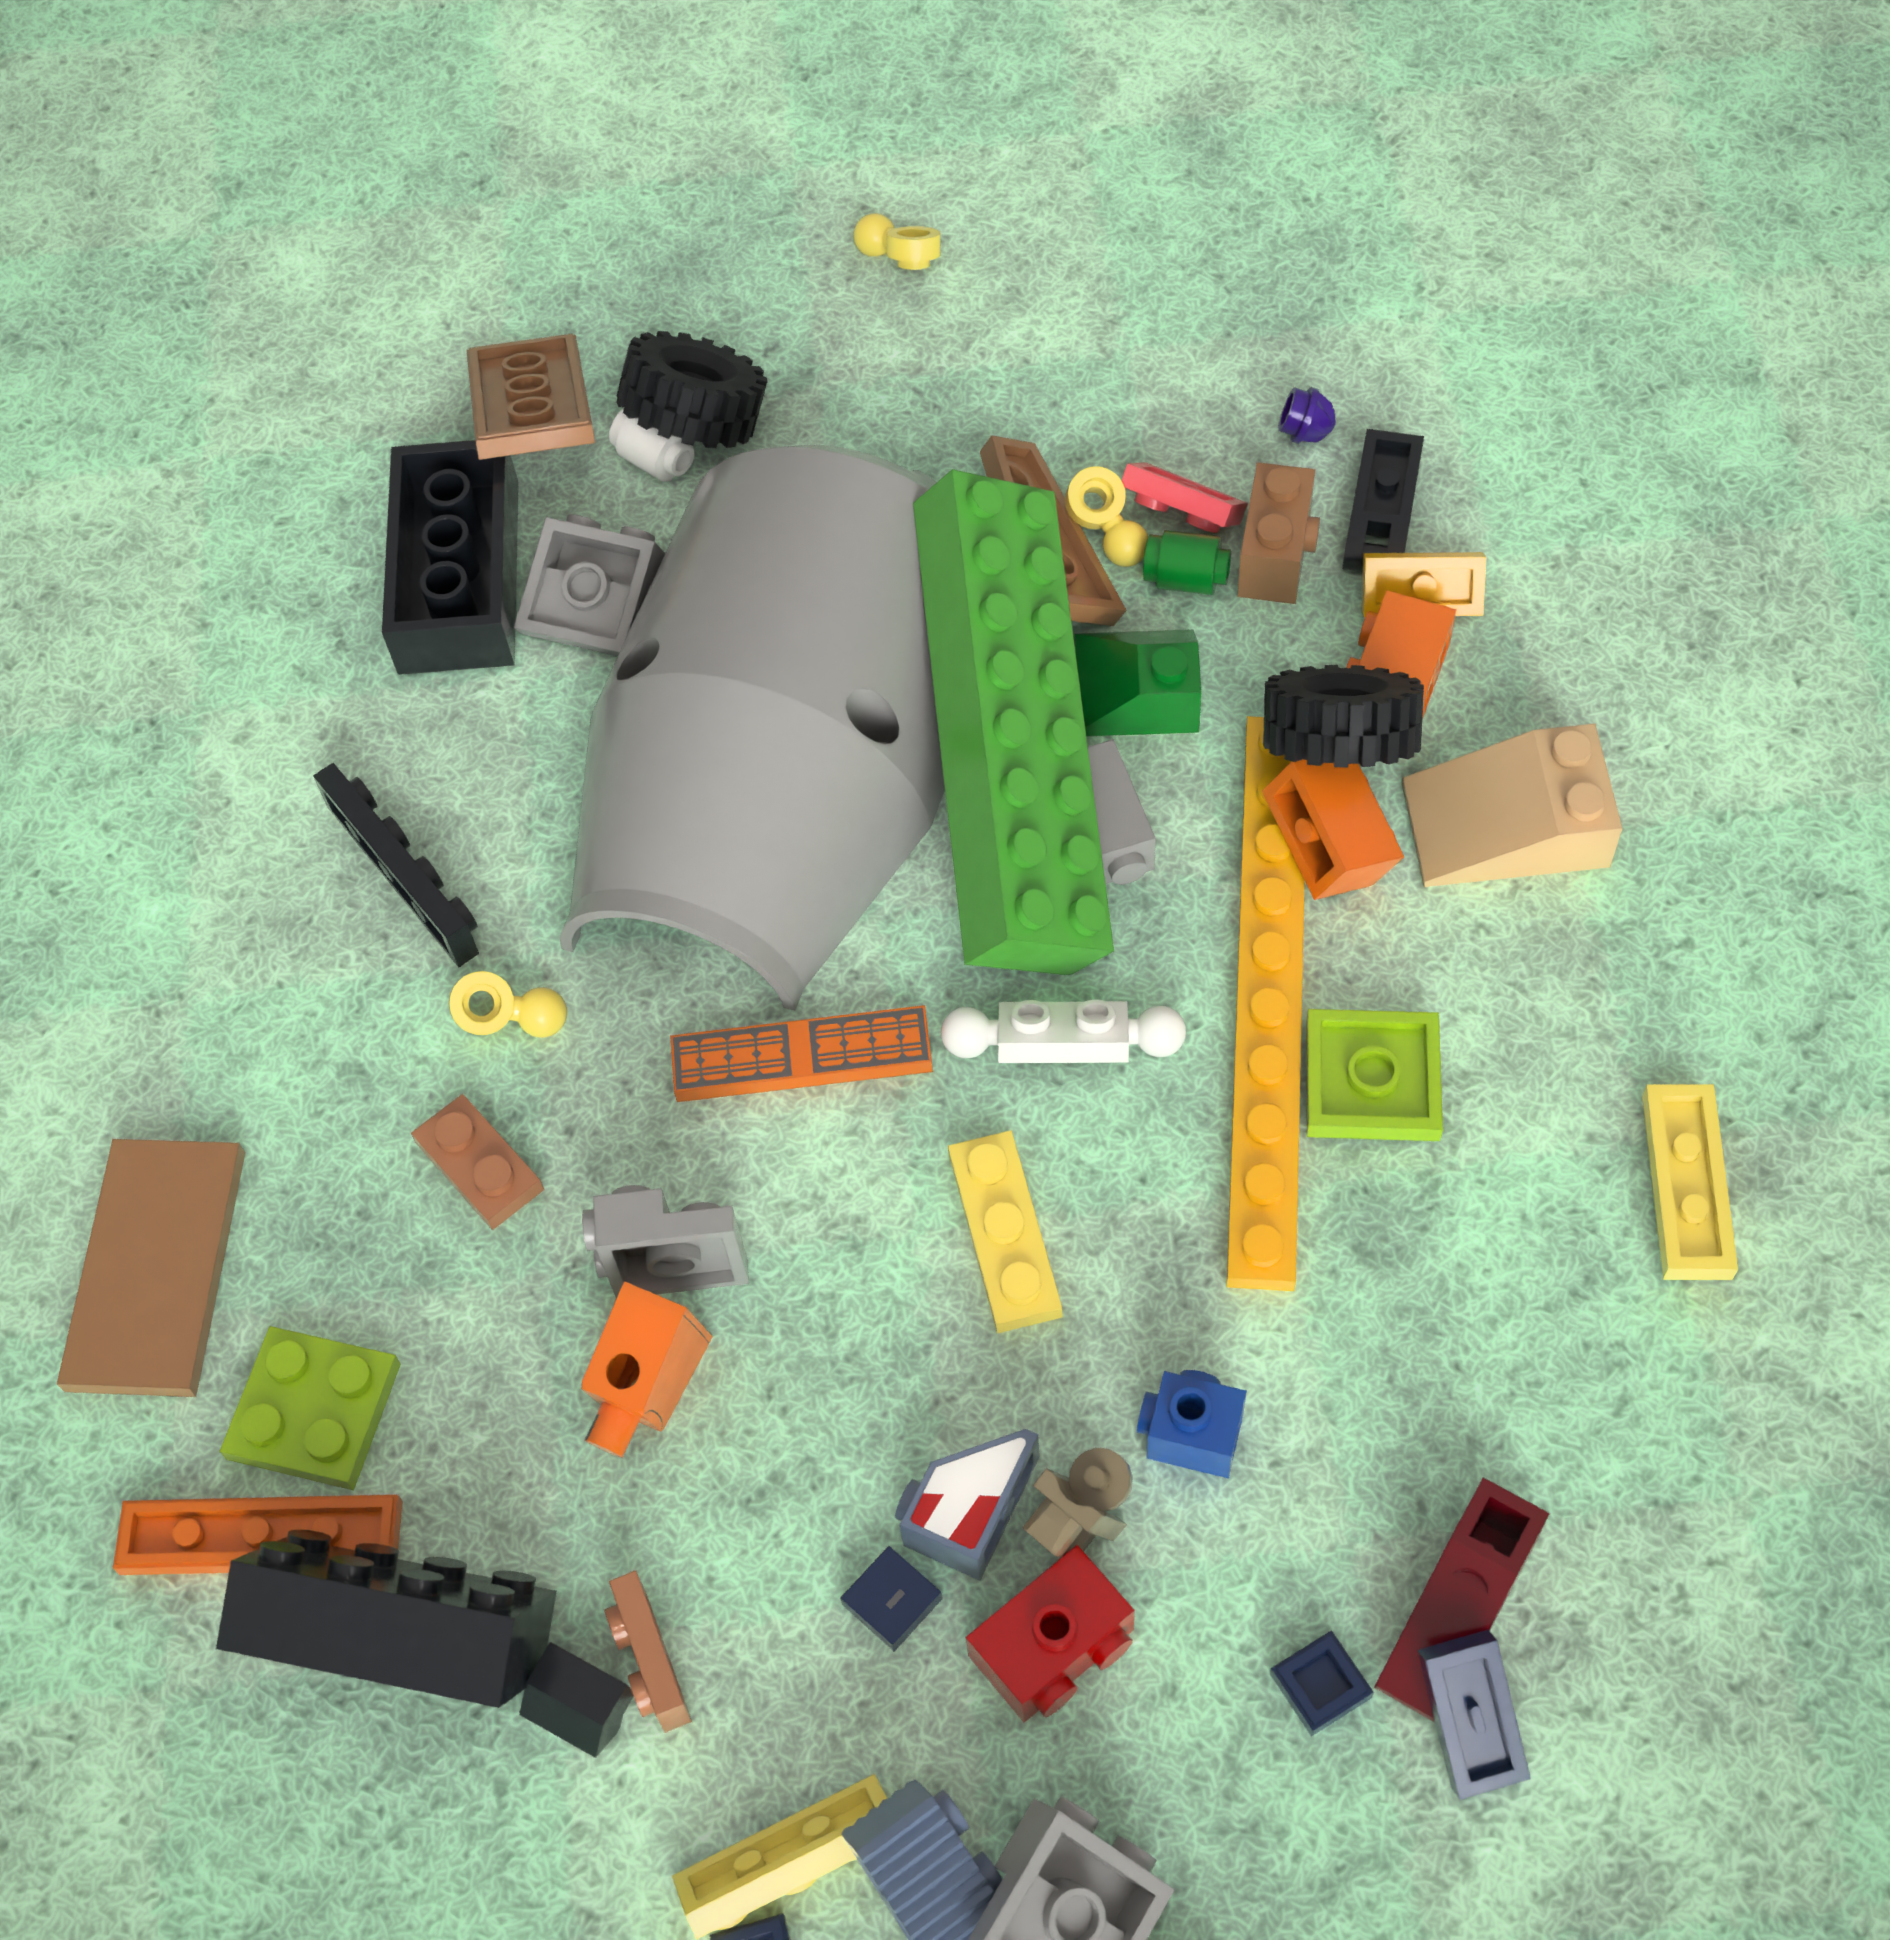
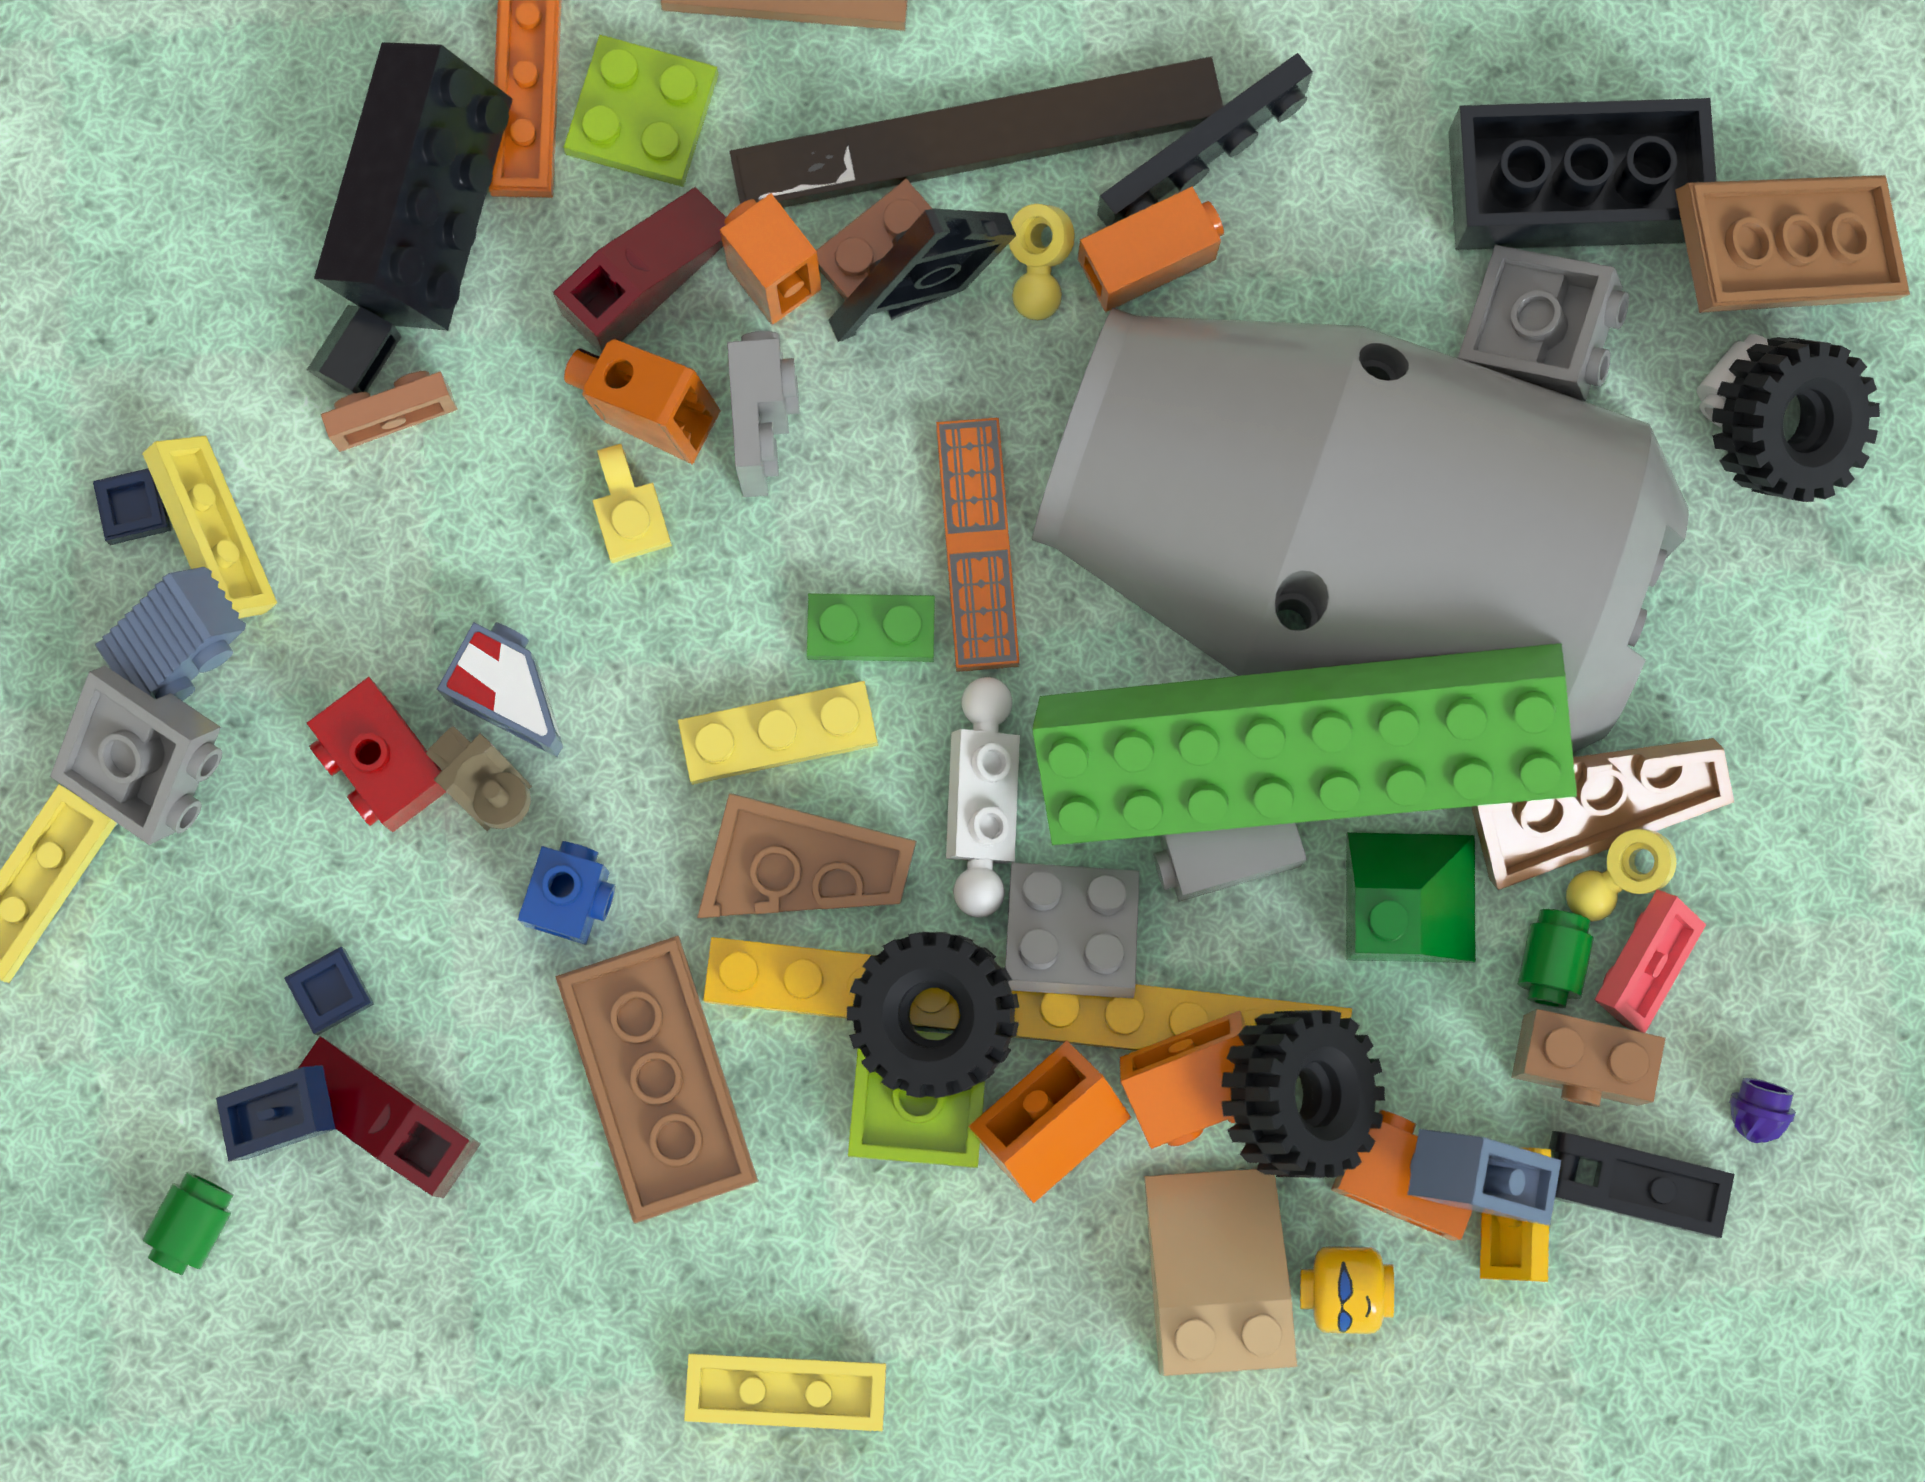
camera: 85 degrees right, 20 degrees up
(369, 1087) = (979, 134): none -> dark brown tile
(493, 1240) = (770, 257): none -> orange brick
(500, 1385) = (640, 269): none -> dark red slope
(503, 901) = (1150, 248): none -> orange brick
(517, 1094) = (925, 265): none -> black wing
(771, 1389) = (629, 515): none -> light yellow plate
(889, 1148) = (870, 627): none -> bright green plate
(891, 1598) = (430, 620): dark blue tile -> none
(1140, 1201) = (799, 861): none -> medium nougat wing
(1194, 944) = (1072, 930): none -> light grey plate
(1325, 1001) = (884, 1022): none -> black tyre
(1381, 1330) = (656, 1079): none -> medium nougat tile
(1387, 946) = (1050, 1121): none -> orange brick
(1401, 584) = (1484, 1176): none -> sand blue slope
(1511, 699) = (1348, 1290): none -> yellow head
(1610, 1816) = (188, 1223): none -> green brick

